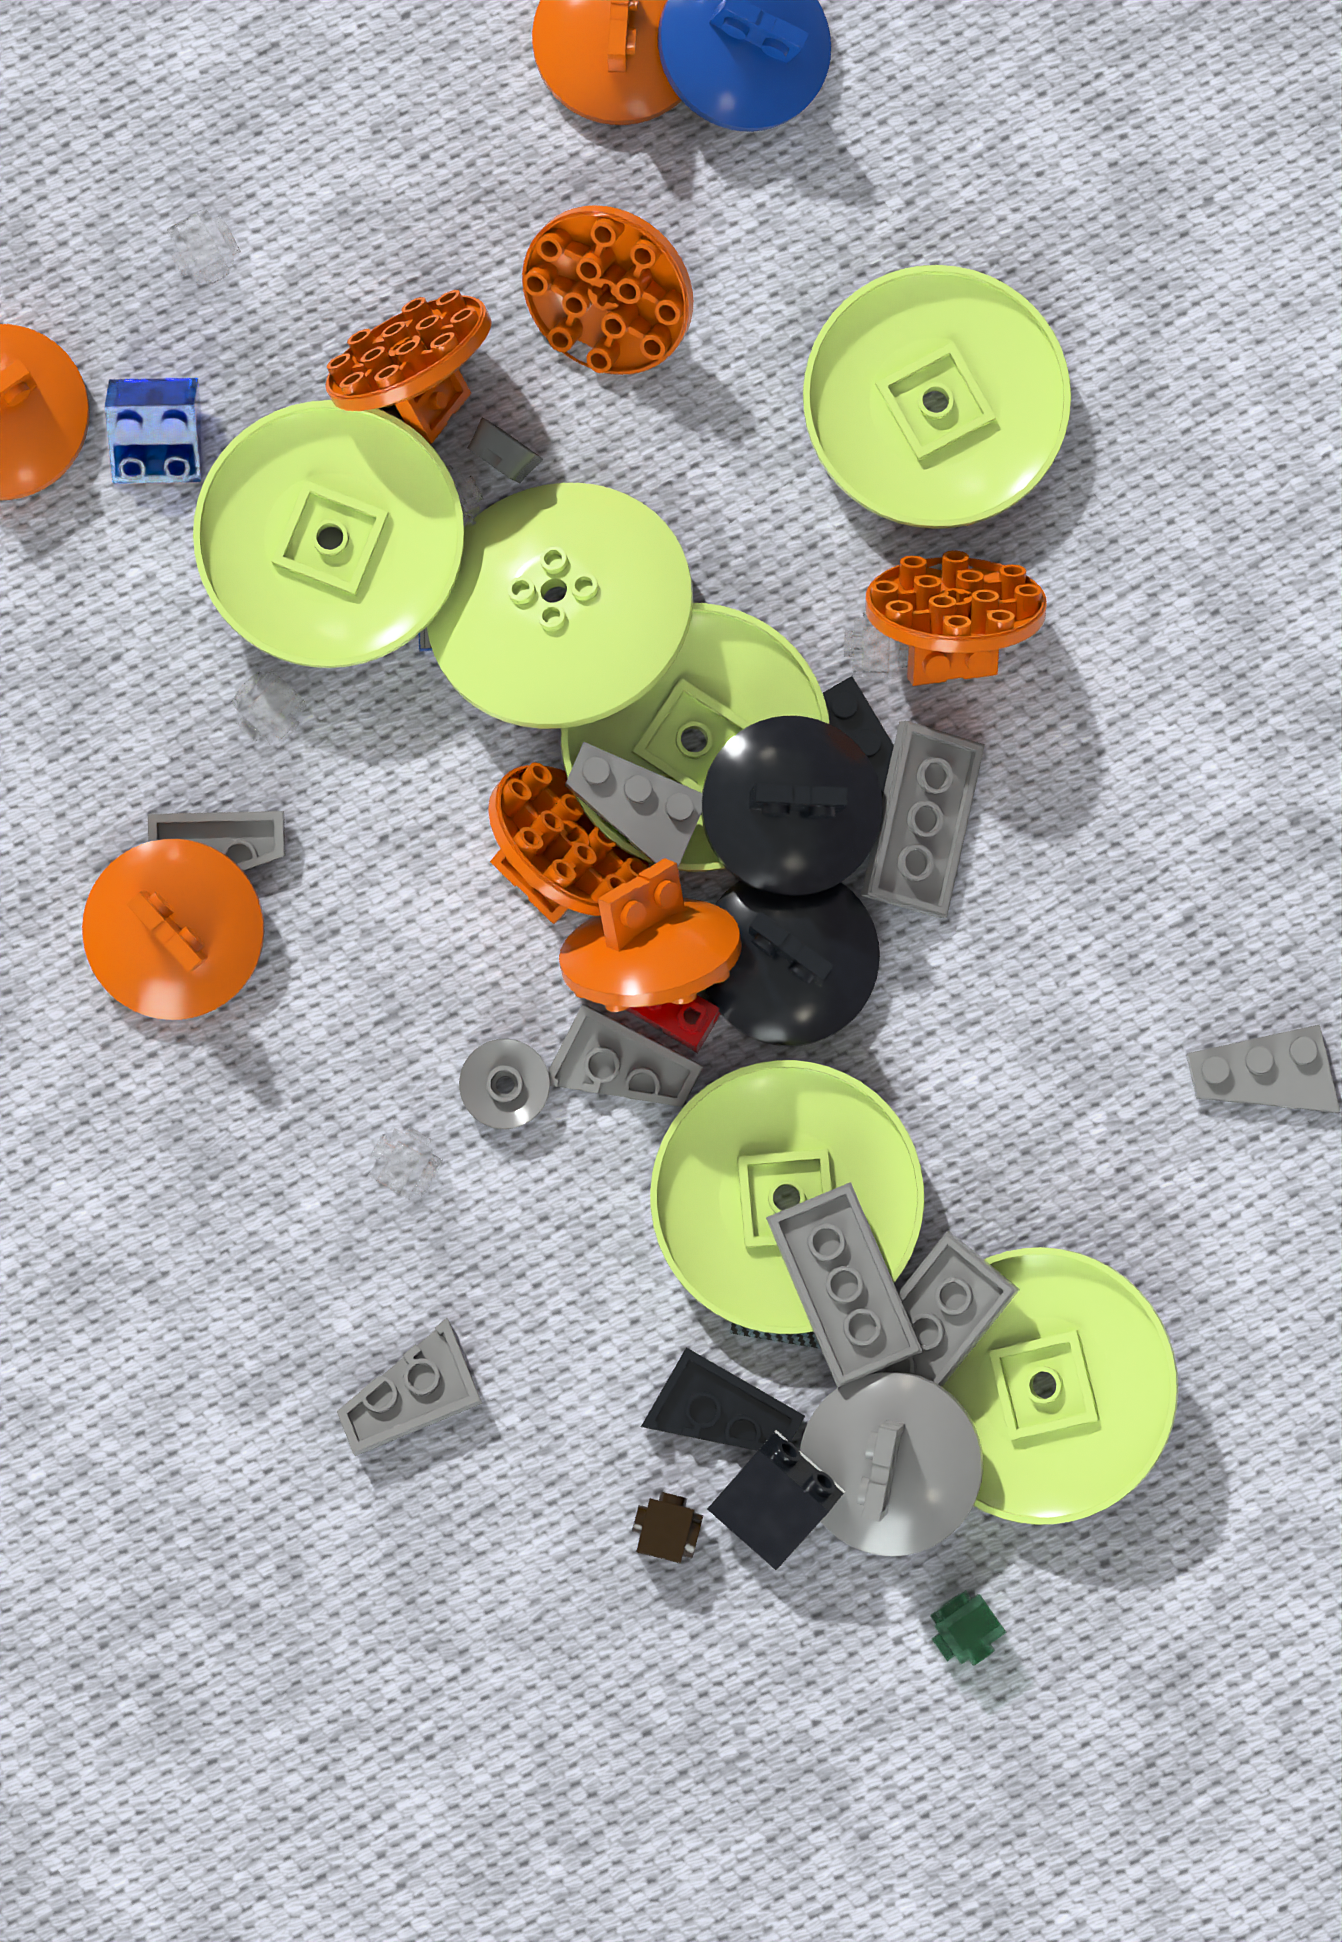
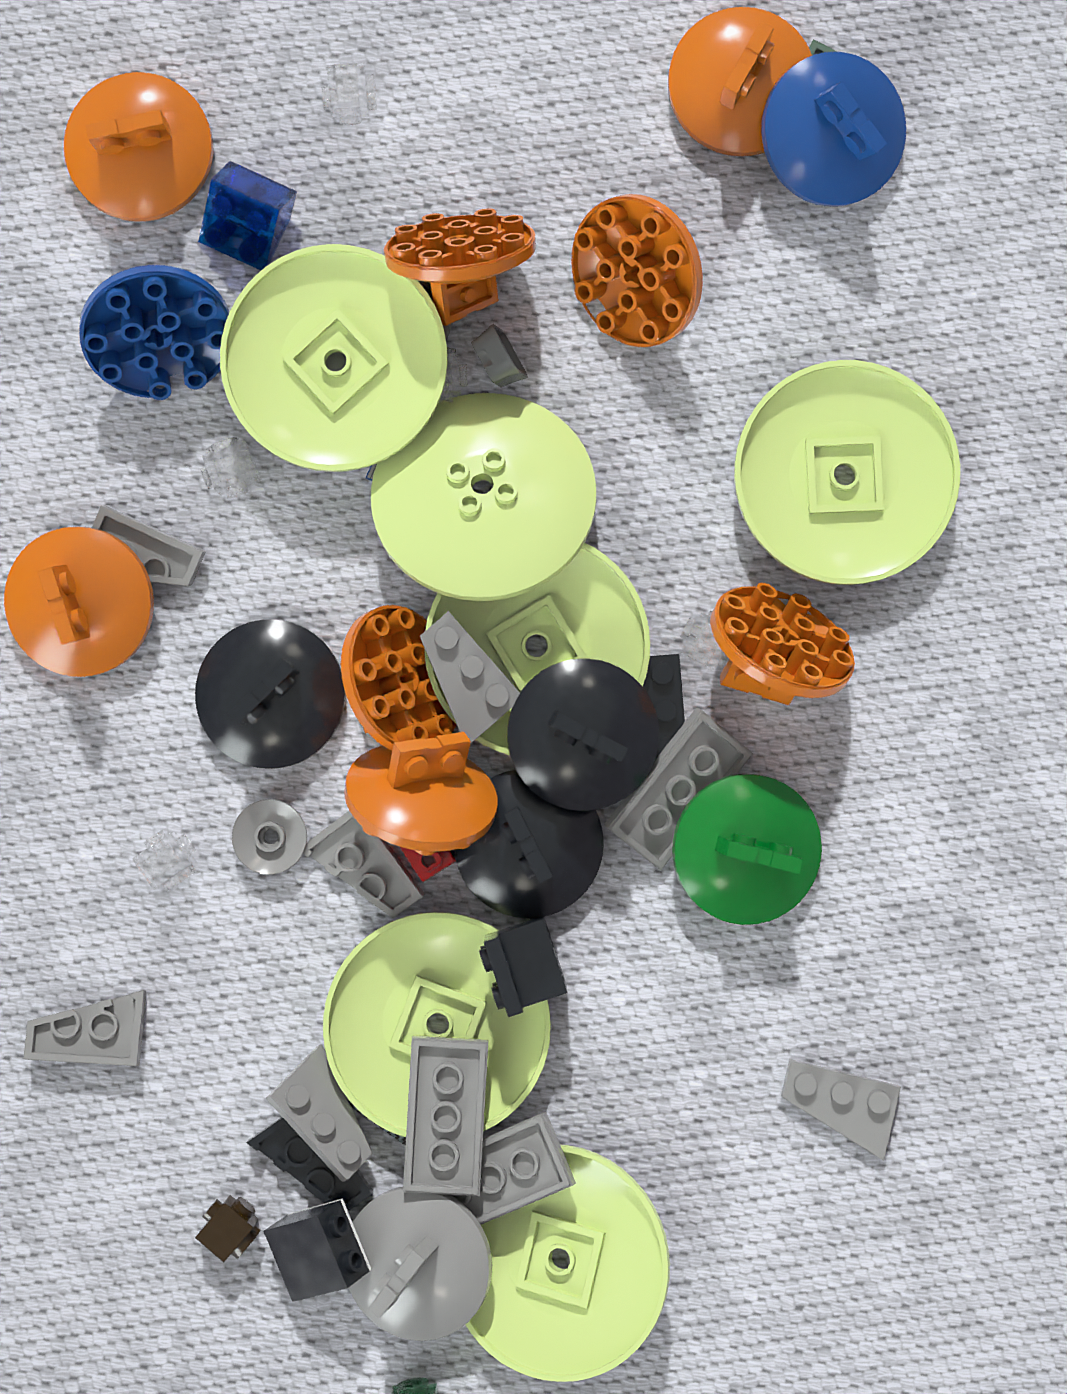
camera: 30 degrees right, 5 degrees up
(118, 593) = (152, 327): none -> blue bracket
(429, 930) = (270, 694): none -> black bracket
(709, 1354) = (322, 1114): none -> light grey wing
(848, 1078) = (523, 965): none -> black bracket
(1027, 847) = (747, 849): none -> green bracket

